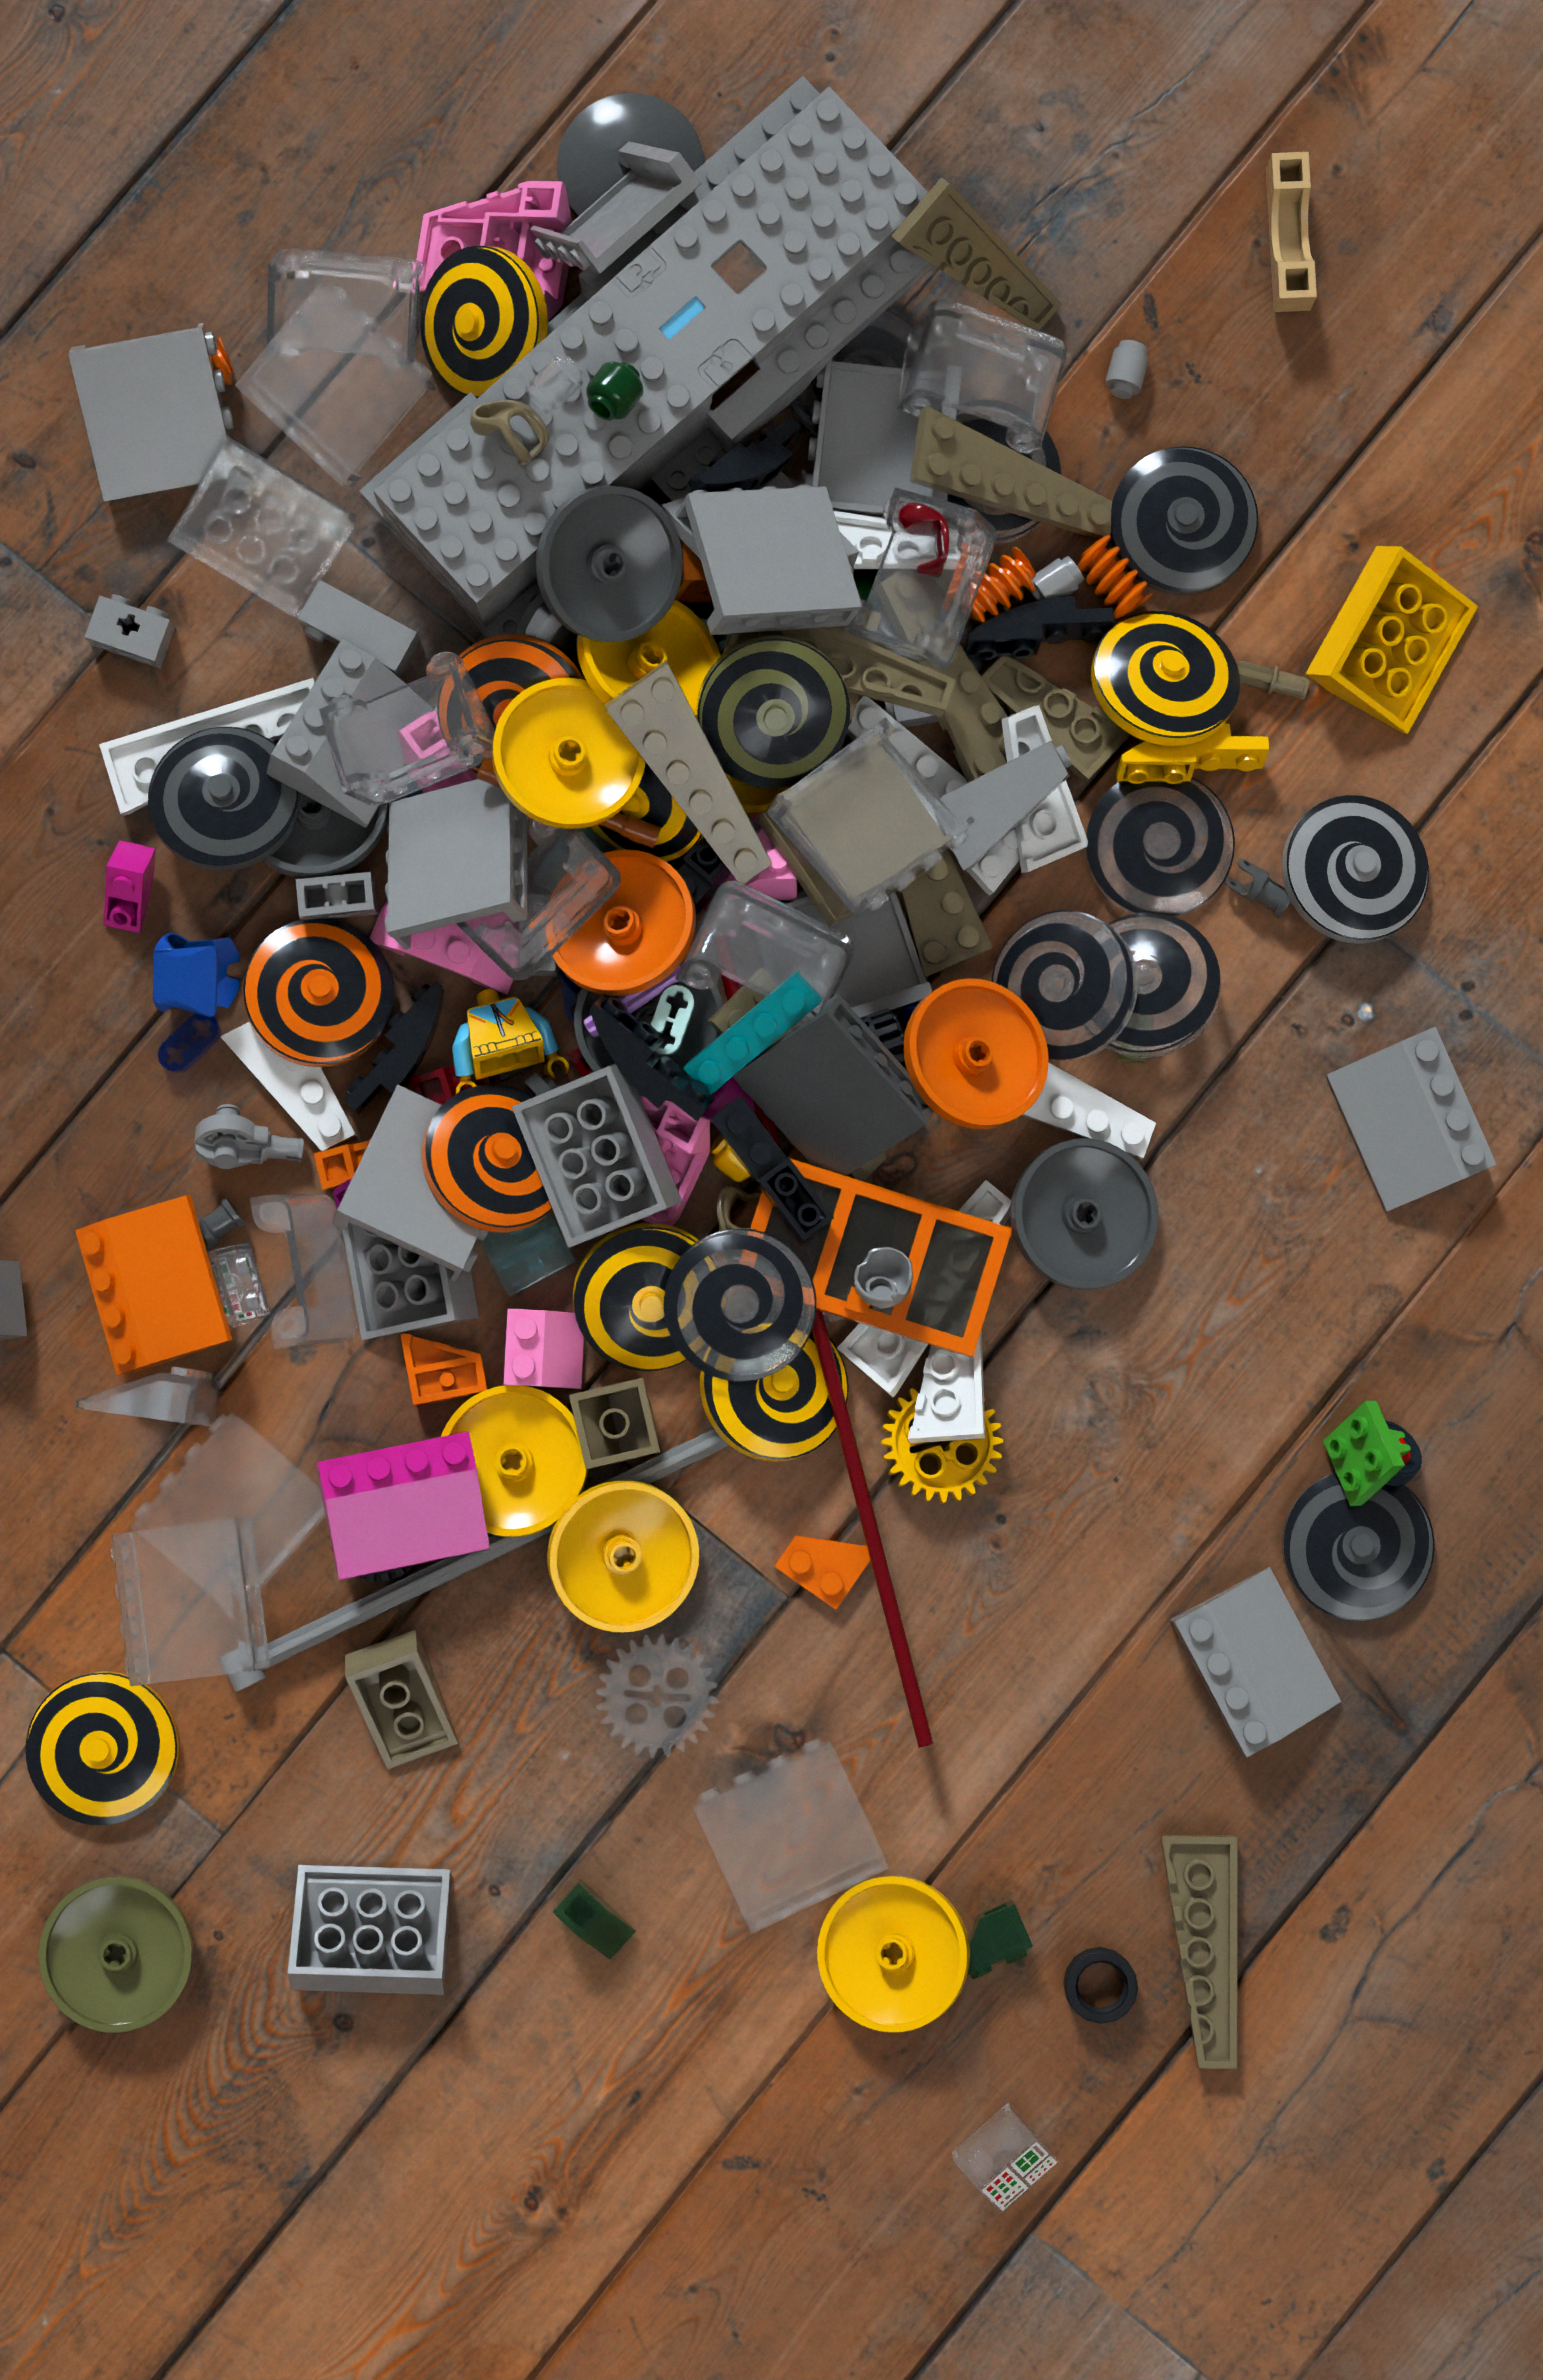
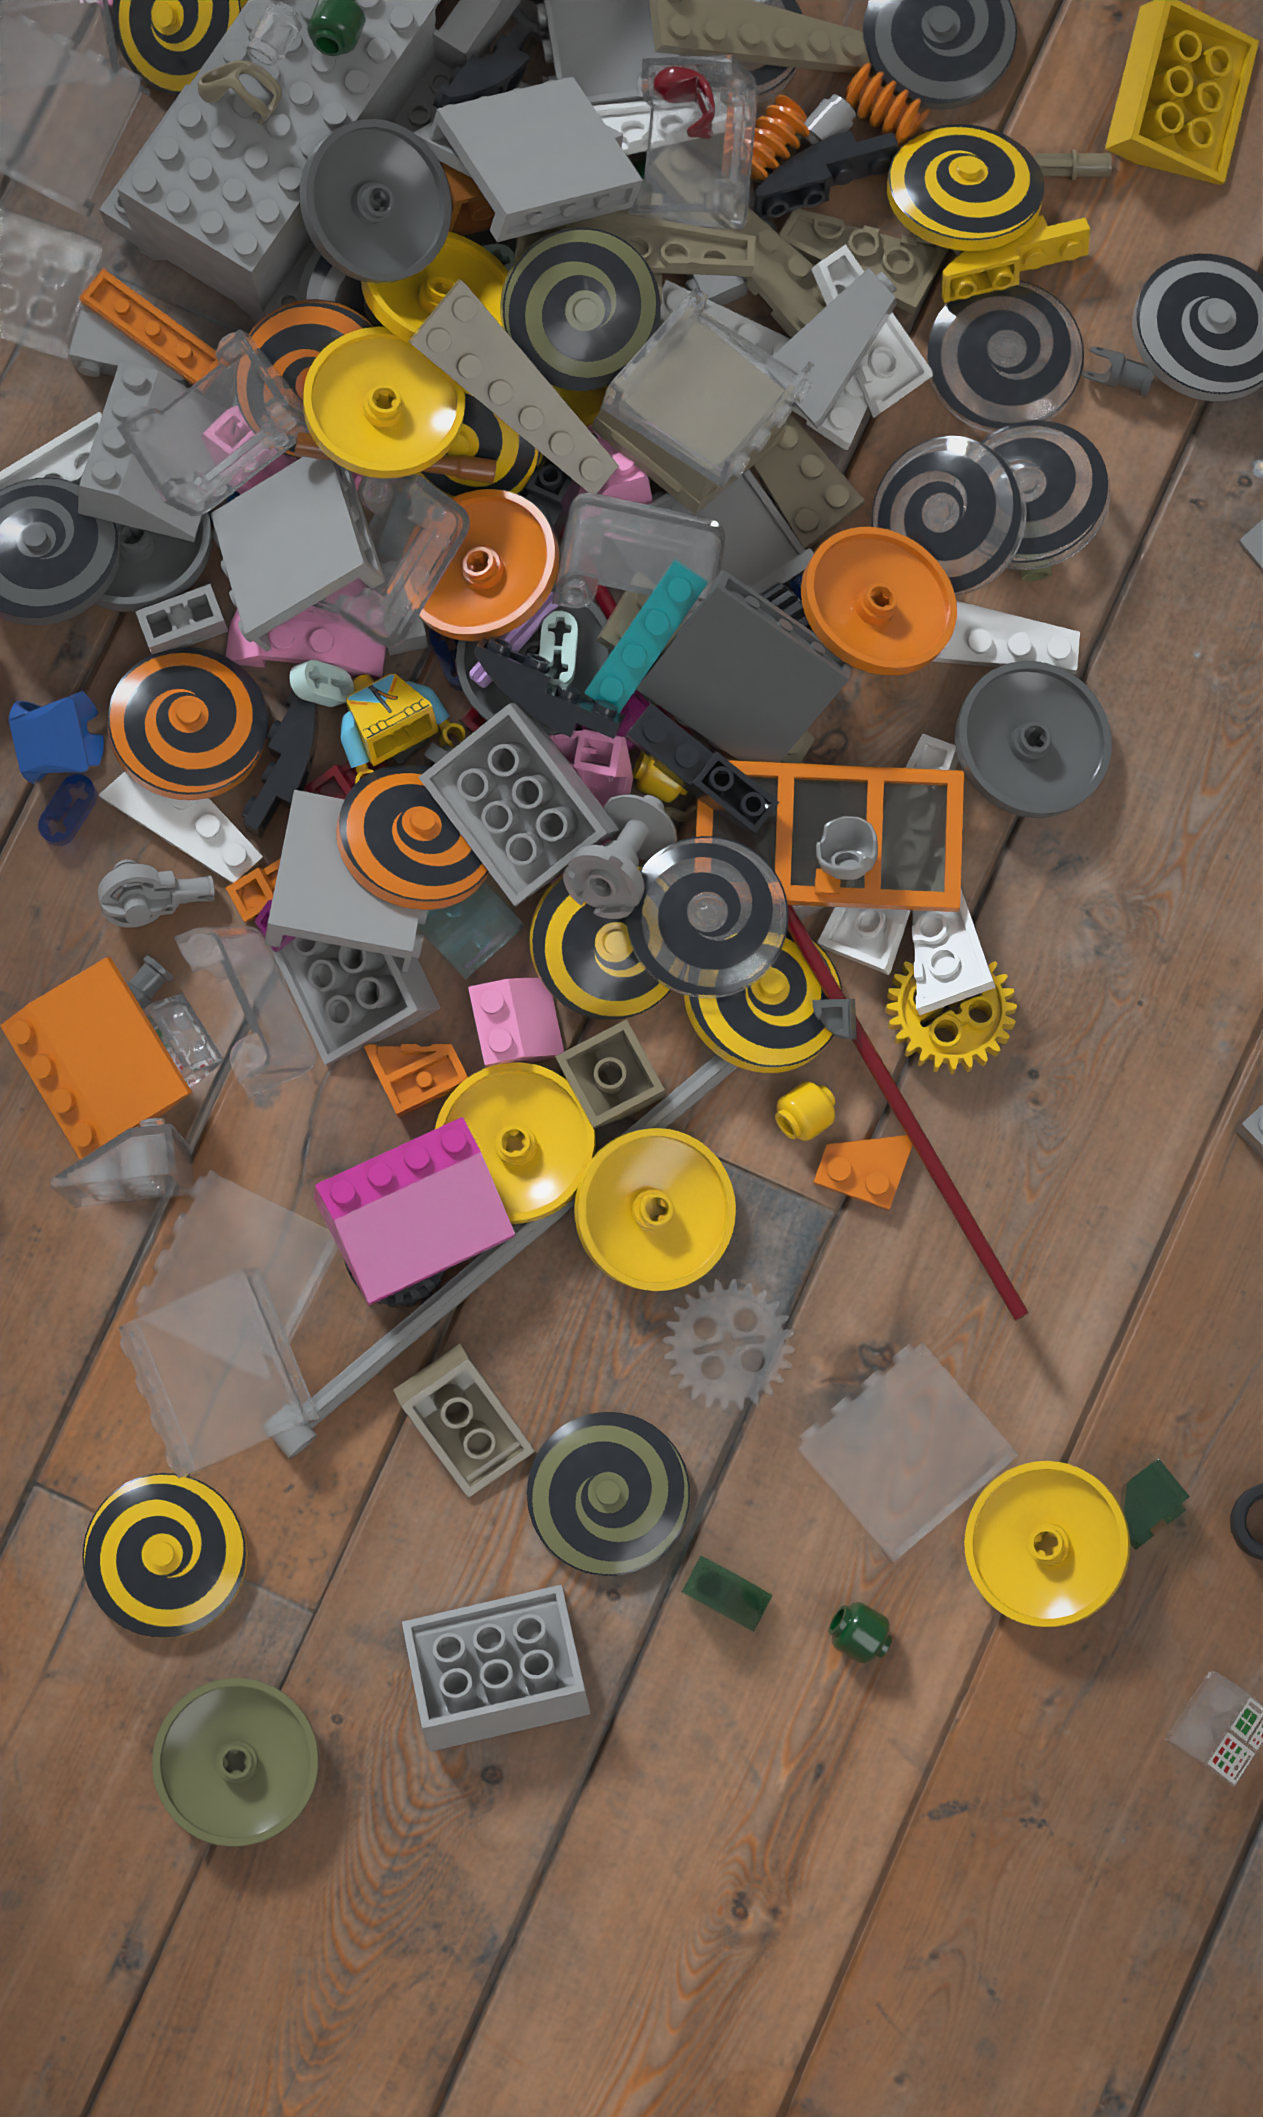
camera: 10 degrees left, 5 degrees down
(378, 615) = (149, 327): none -> orange tile
(449, 983) = (321, 683): none -> light aqua beam
(513, 1799) = (608, 1494): none -> dish
(660, 1245) = (609, 873): none -> light grey piece
(705, 1986) = (860, 1632): none -> dark green head
(784, 1500) = (805, 1111): none -> yellow head
(835, 1426) = (837, 1016): none -> dark grey tile

